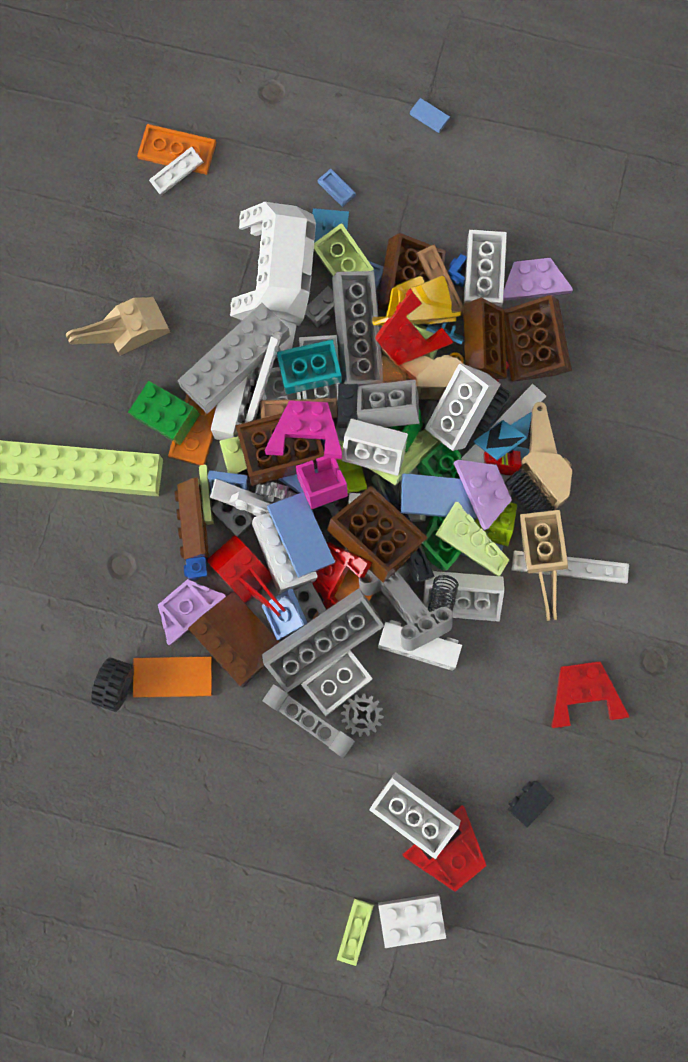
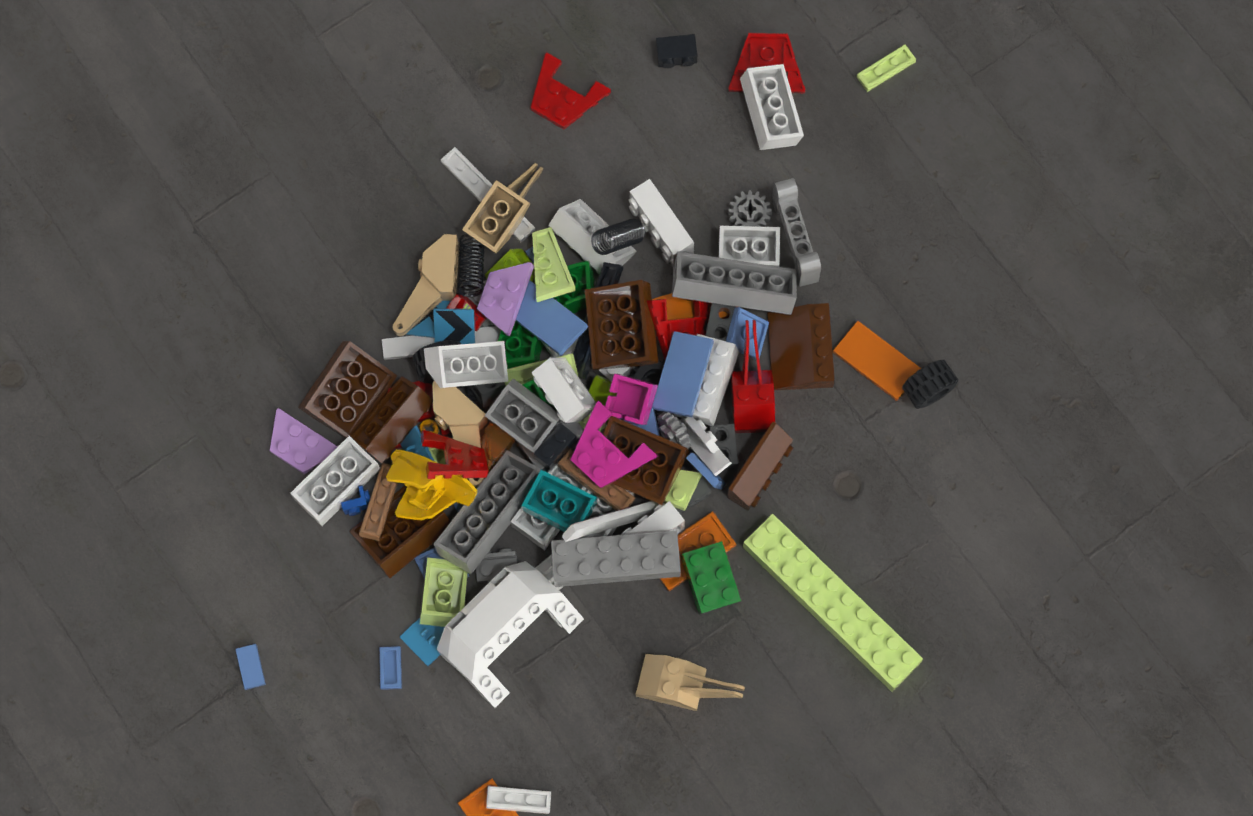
camera: 140 degrees left, 5 degrees down
(185, 607) = (821, 404): lavender wing -> none
(195, 568) = (790, 425): blue bracket -> none
(205, 492) = (723, 493): yellowish green tile -> none
(409, 608) = (646, 244): light grey beam -> none
(412, 920) = (837, 41): white brick -> none

